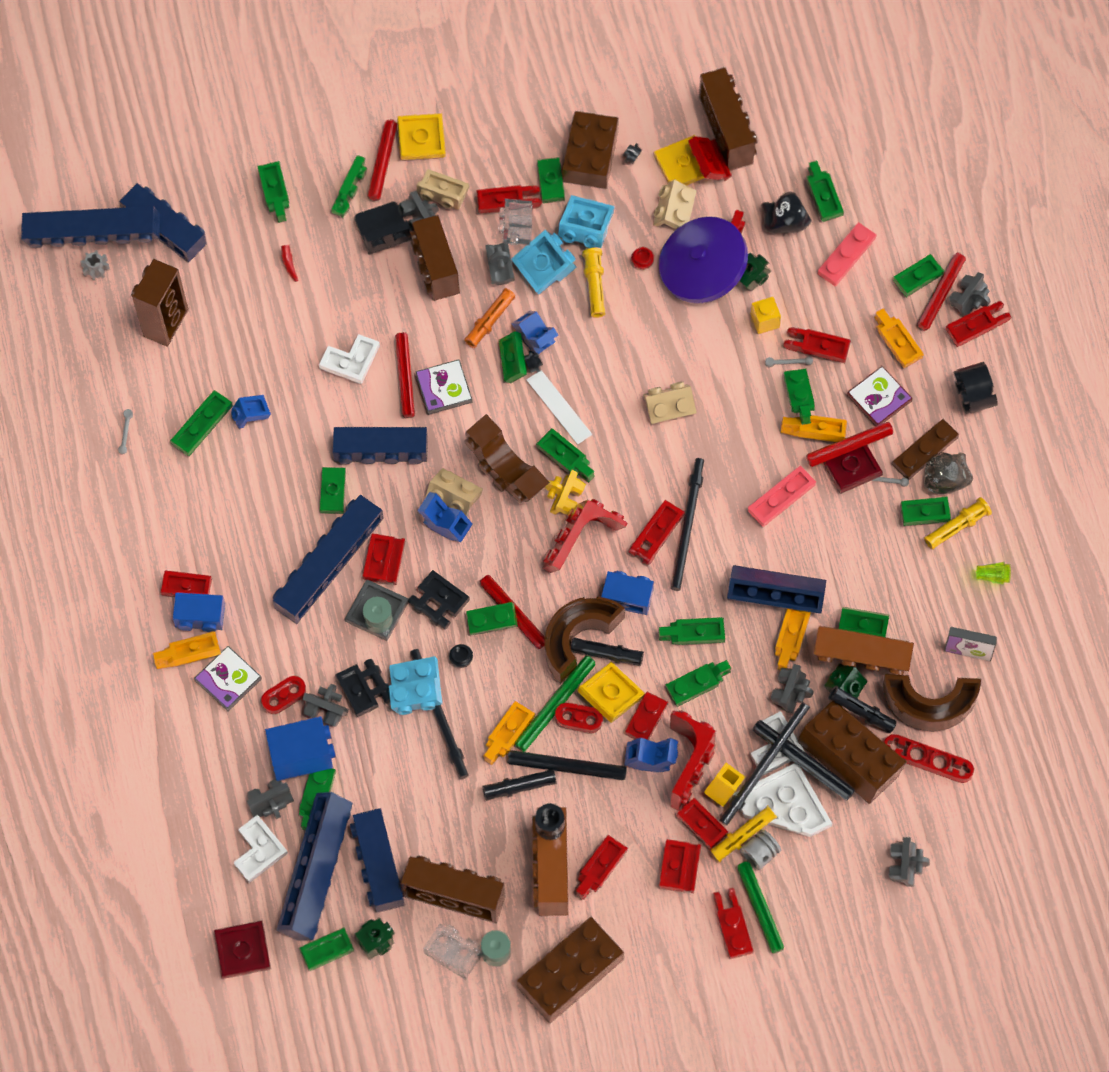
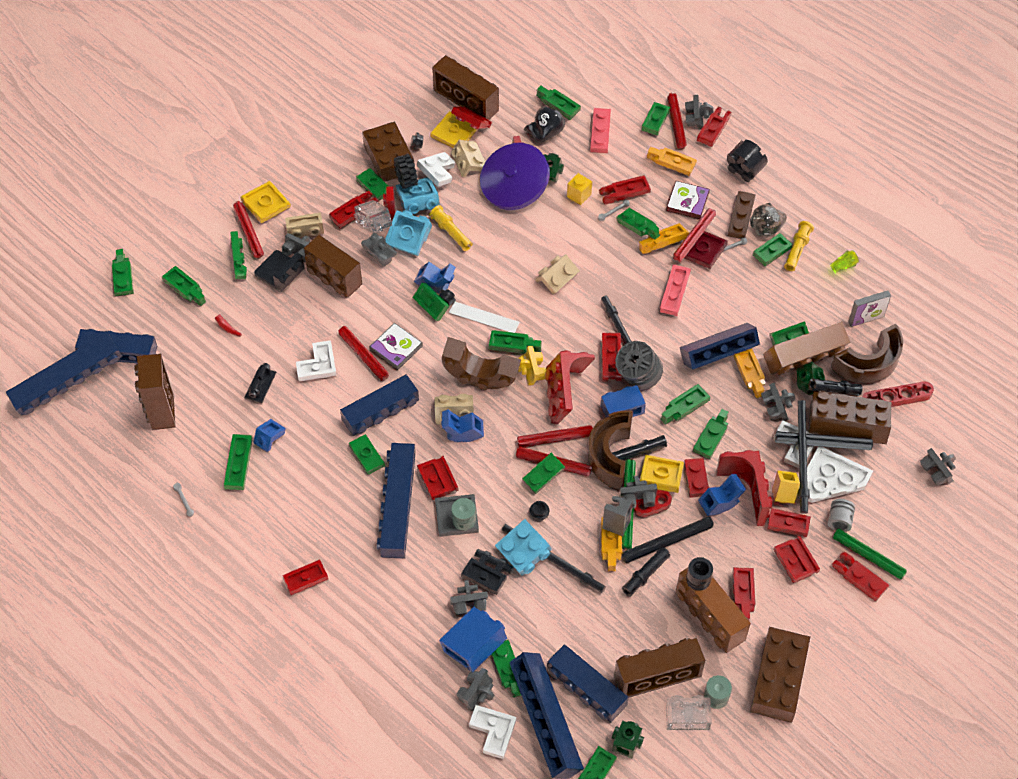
camera: 35 degrees left, 10 degrees down
(95, 265) = (83, 400): light grey gear -> none
(188, 651) = (339, 621): light orange hinge -> none
(199, 612) = (328, 589): blue brick -> none
(221, 139) = (122, 274): none -> green hinge
(228, 678) = (382, 624): tile -> none
(279, 349) = (260, 383): none -> black hinge
(282, 694) = (431, 611): red plate -> none
(443, 594) = (496, 476): black plate -> none
(484, 325) = (397, 270): orange pin -> none
(524, 714) = (617, 518): none -> dark grey hinge
(532, 584) = (554, 436): none -> red axle
(545, 216) = (389, 201): none -> red plate
(574, 704) = (639, 490): none -> dark grey hips
(585, 188) = (405, 171): none -> black tyre
(625, 198) = (435, 168): none -> white plate
(642, 258) = (471, 198): red plate -> none
(671, 561) = (639, 365): none -> dark grey wheel
(742, 834) = (820, 518): yellow pin -> none

